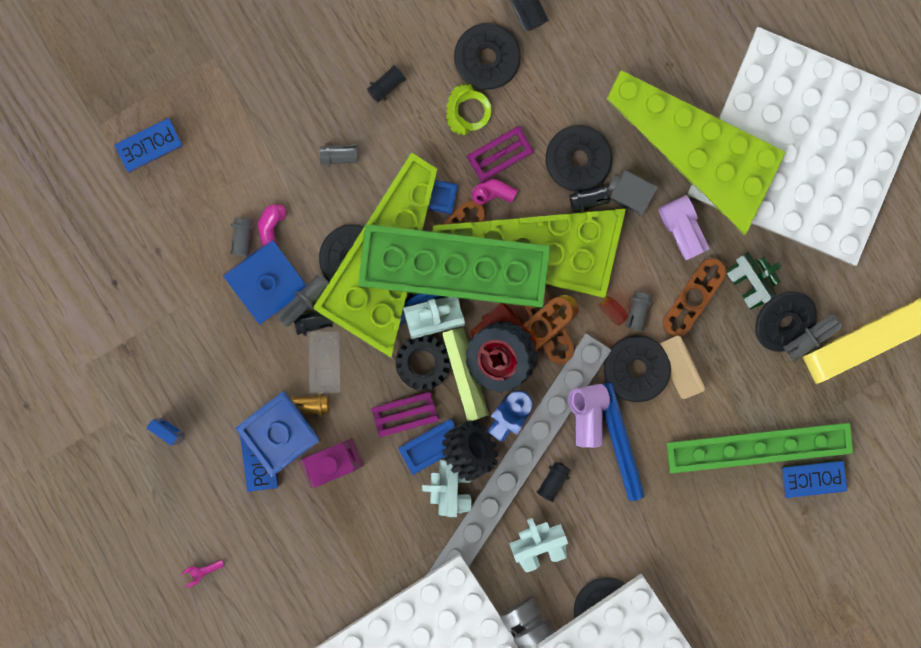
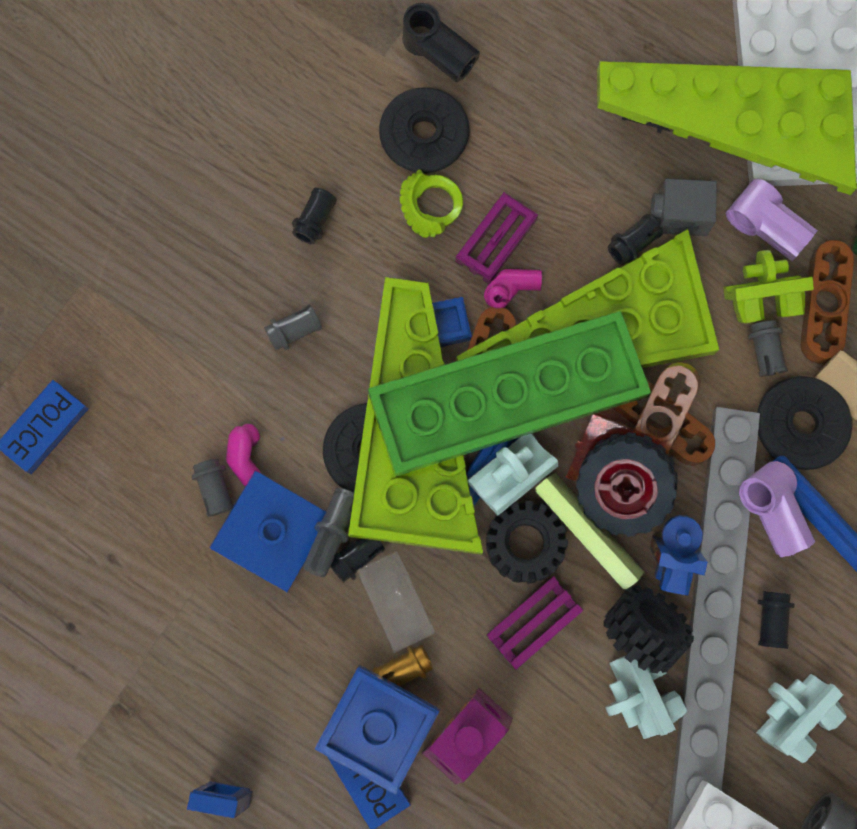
camera: 20 degrees left, 10 degrees down
(426, 448) = (585, 653): blue tile -> none
(578, 138) = (601, 174): black wheel -> none
(613, 311) = (738, 362): clear red tile -> none
(669, 277) = (788, 291): none -> lime hips

